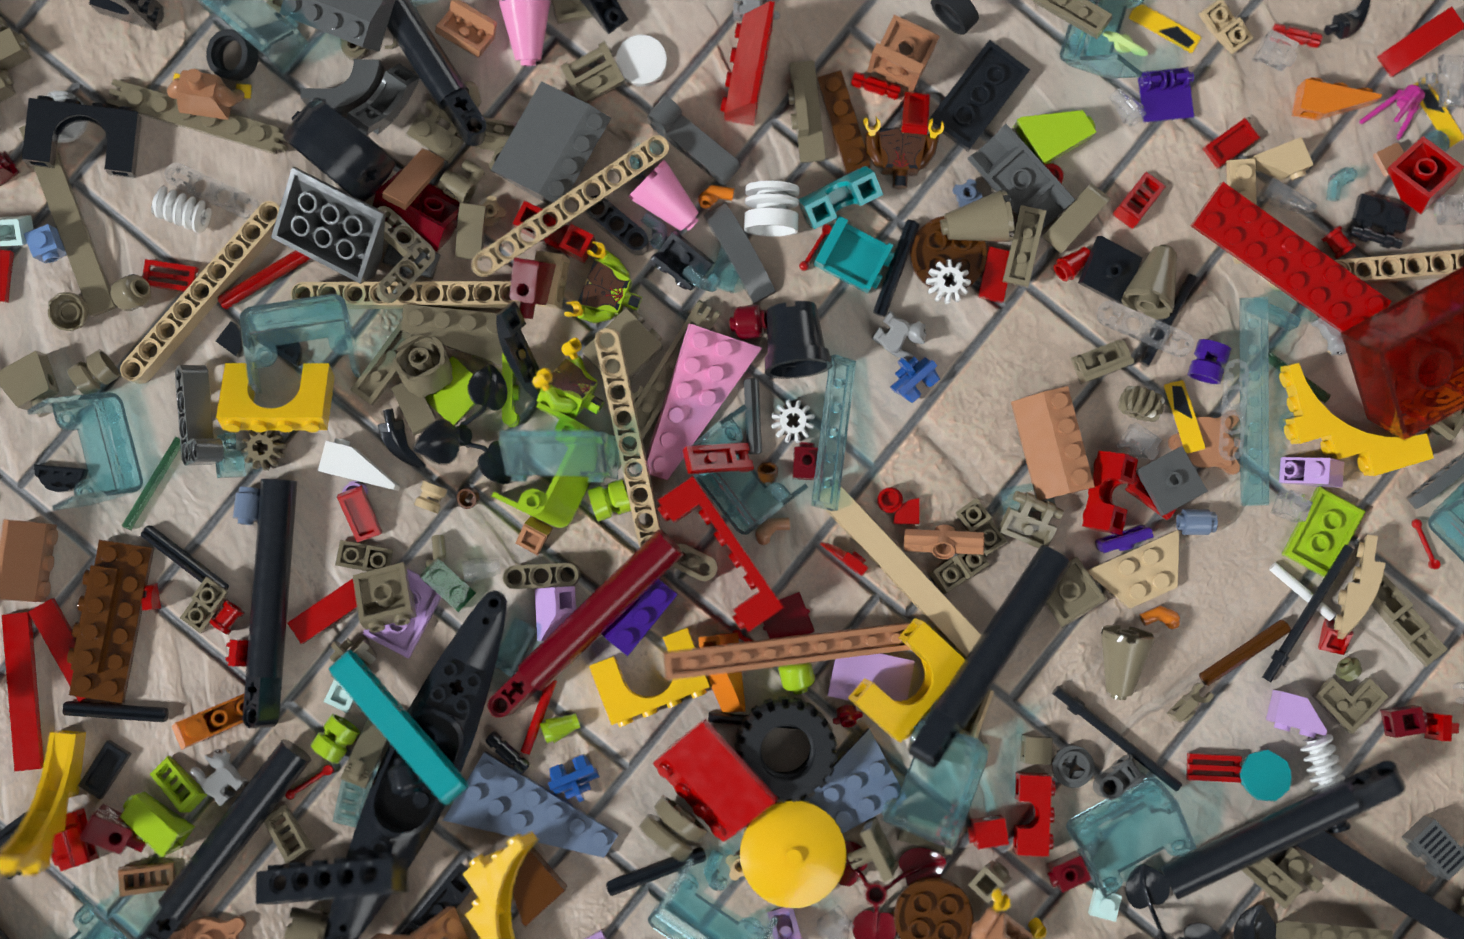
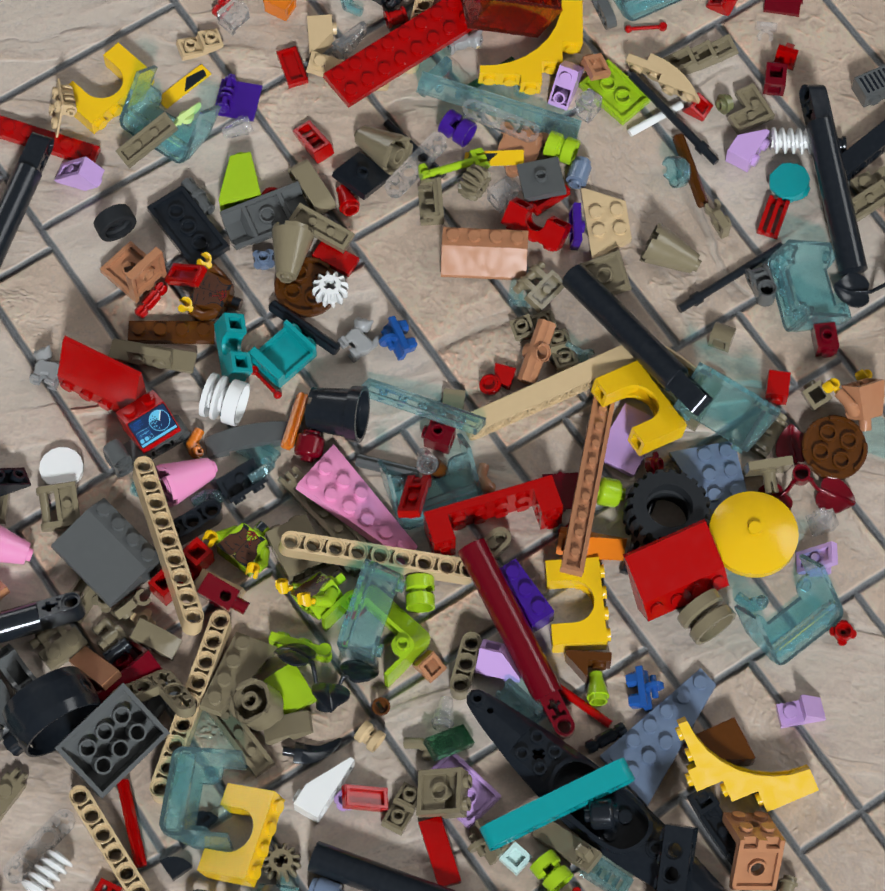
camera: 70 degrees left, 20 degrees down
(446, 198) = (117, 650): none -> black pin
(498, 188) = (125, 609): none -> dark tan plate
(516, 348) = (300, 622): black slope -> none
(585, 701) = (581, 660): none -> reddish brown slope
(652, 872) = (739, 654): black axle -> none
(713, 133) = (148, 421): none -> slope
(735, 871) = (747, 586): tan plate -> none
(767, 458) = (426, 461): none -> clear cone
(774, 295) = (294, 421): none -> orange axle
(793, 411) = (407, 431): white gear -> none
(853, 561) = (530, 425): red plate -> none
(858, 464) = (454, 397): none -> dark tan tile
(962, 594) = (582, 354): none -> clear light blue hand
(1023, 92) = (198, 196): none -> dark grey pin
(1035, 837) = (756, 343): red arch -> none
(1077, 777) = (739, 306): dark grey gear -> none
(1104, 907) = (858, 323): light aqua plate -> none
(1163, 614) = (647, 213): orange arm -> none
(1172, 395) = (476, 157): none -> lime hinge
(1222, 492) = (563, 148): none -> lime wheel
(1235, 638) = (677, 171): none -> clear light blue hair
(1347, 500) = (595, 66): none -> nougat bracket

